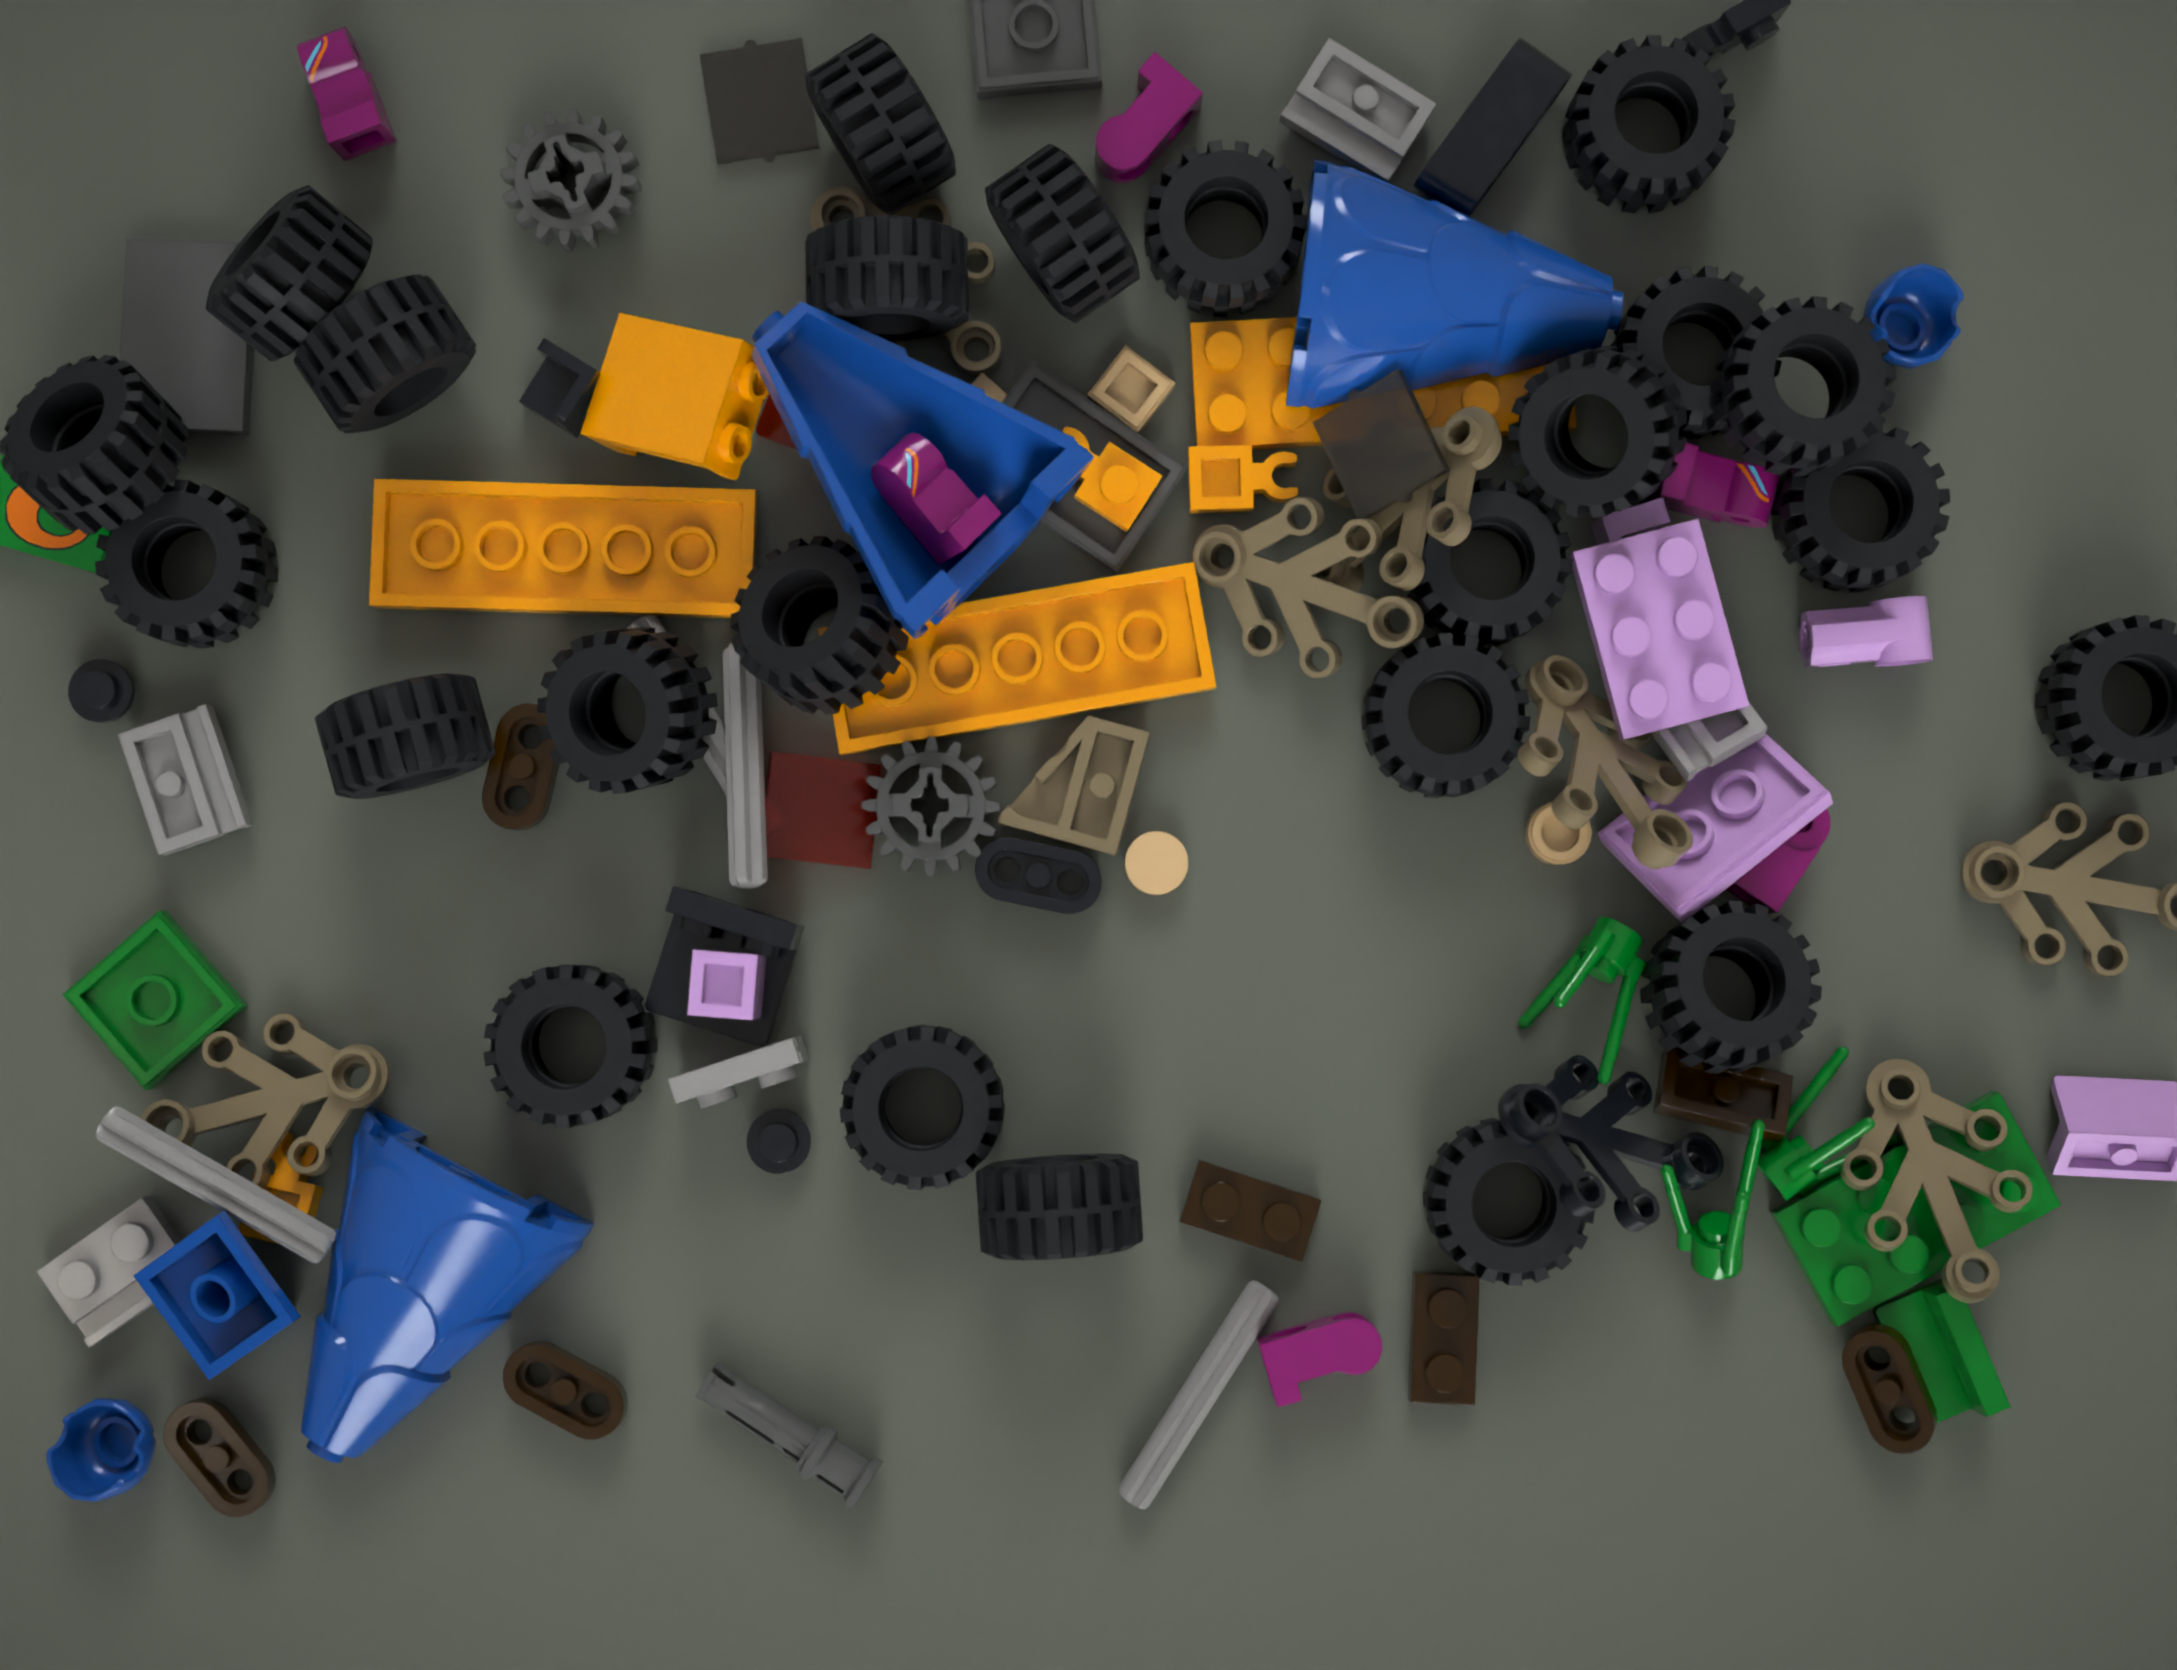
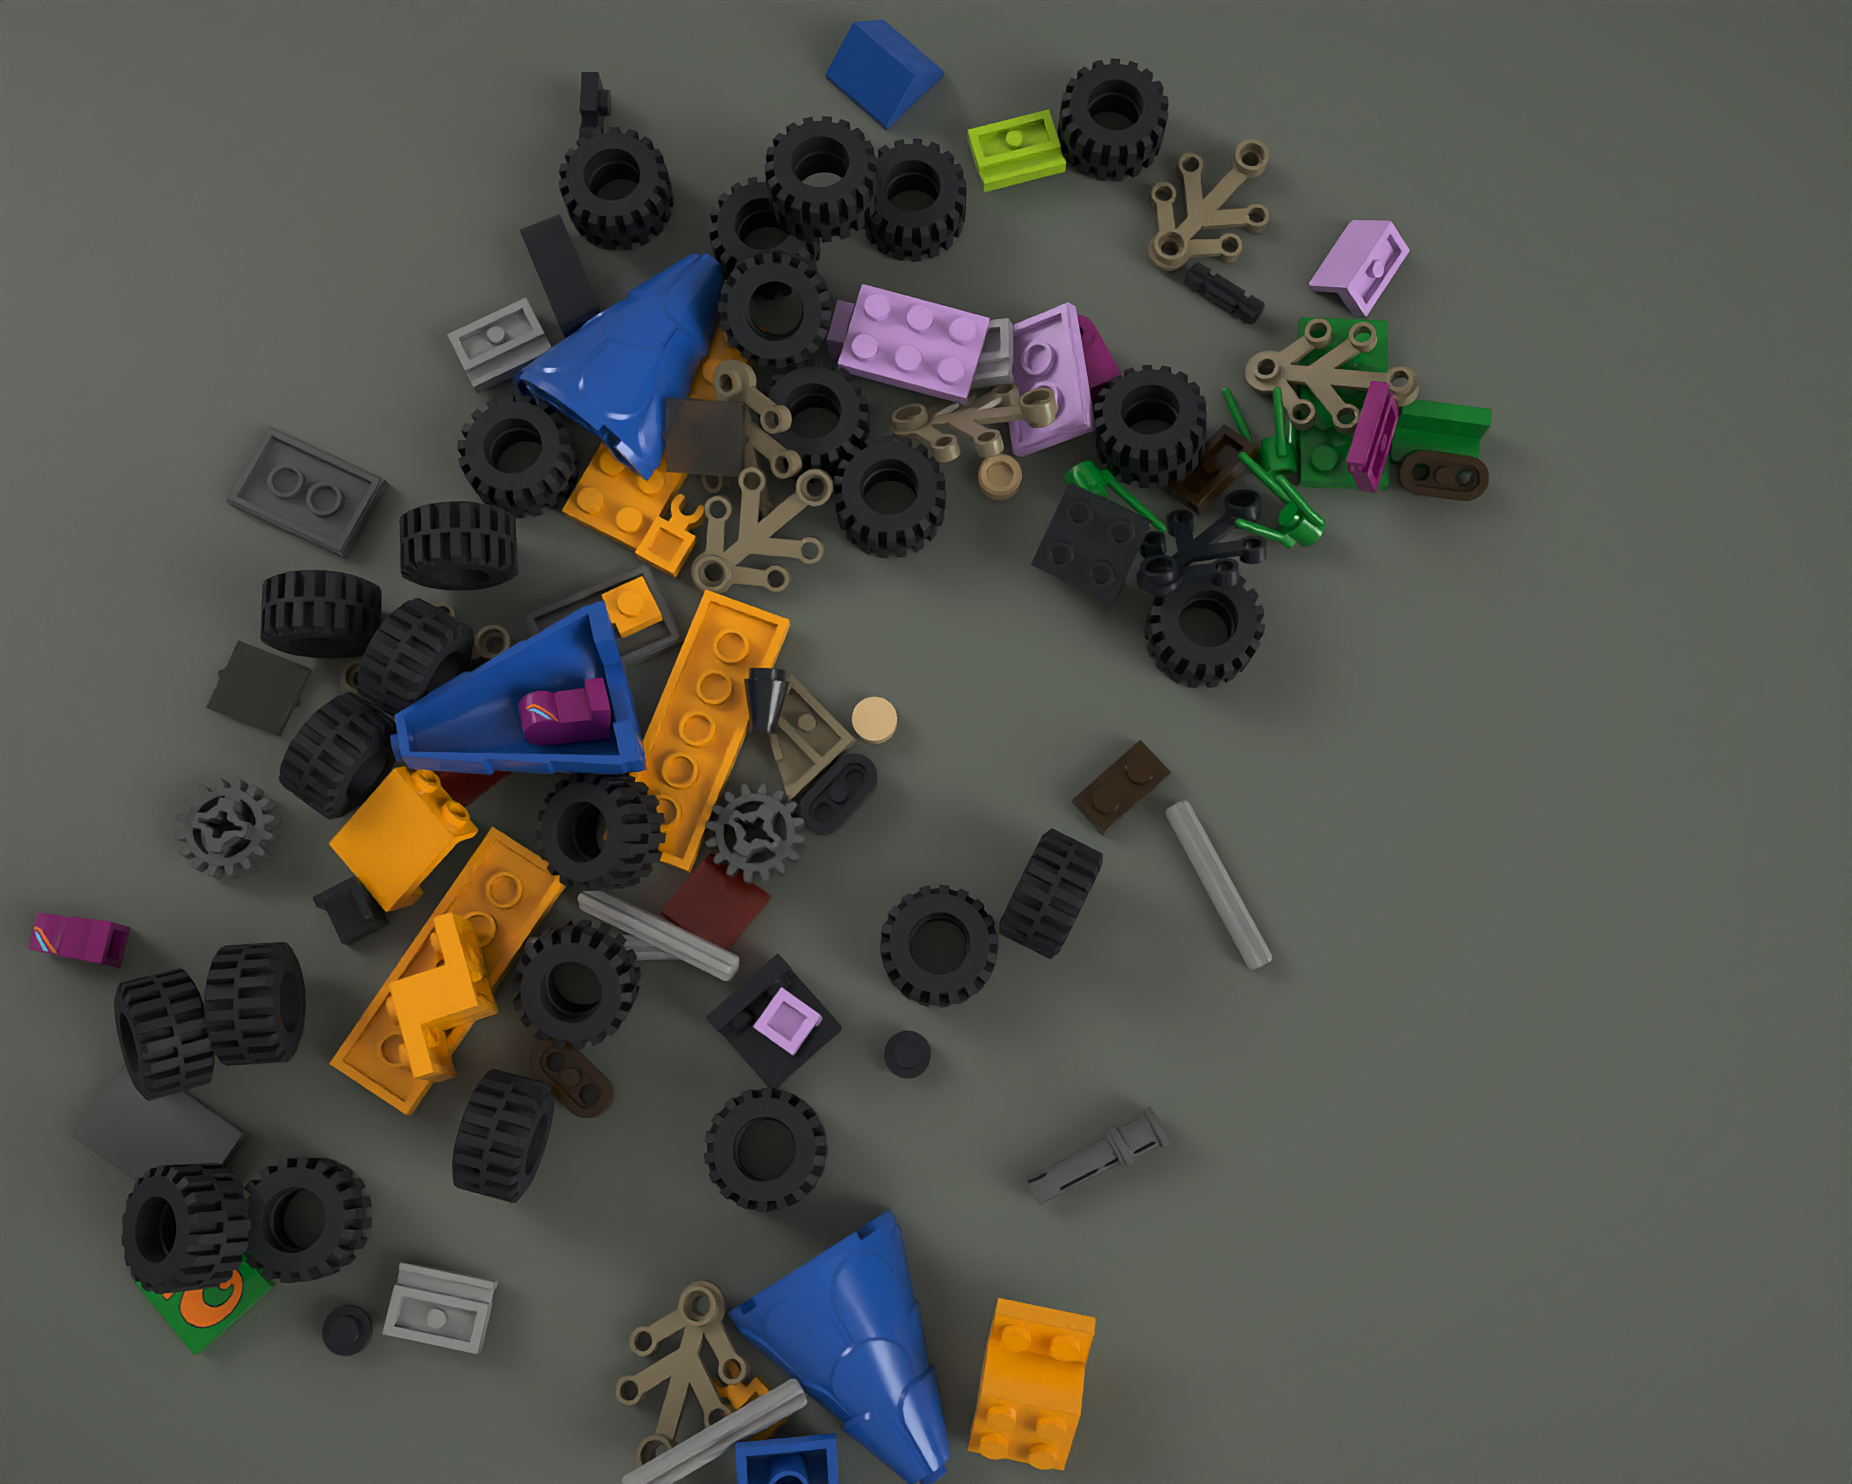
camera: 60 degrees left, 10 degrees down
(155, 1000) = (569, 1418): green tile -> none
(485, 1505) = (1031, 1384): none -> light orange bracket
(502, 561) = (441, 999): none -> light orange bracket
(565, 1394) = (986, 1289): dark brown plate -> none
(716, 1082) = (854, 1029): light grey plate -> none
(725, 260) = (339, 756): none -> black tyre
(1099, 719) = (765, 698): none -> black cone
(1131, 389) = (578, 568): tan tile -> none
(1138, 137) = (430, 470): magenta leg -> none
(1317, 1348) = (1231, 795): magenta leg -> none
(1443, 1338) = (1267, 717): dark brown plate -> none
(1526, 1005) = (1091, 543): none -> black bracket
(1718, 489) = (857, 264): magenta leg -> none
(1878, 1278) = (1373, 437): none -> magenta plate
(1883, 633) = (992, 229): lavender piece -> none
(1915, 314) = (816, 99): blue hair -> none
(1975, 975) = (1224, 293): none -> black axle
(2013, 597) = (1016, 150): none -> lime plate
(2022, 358) = (881, 71): none -> blue slope

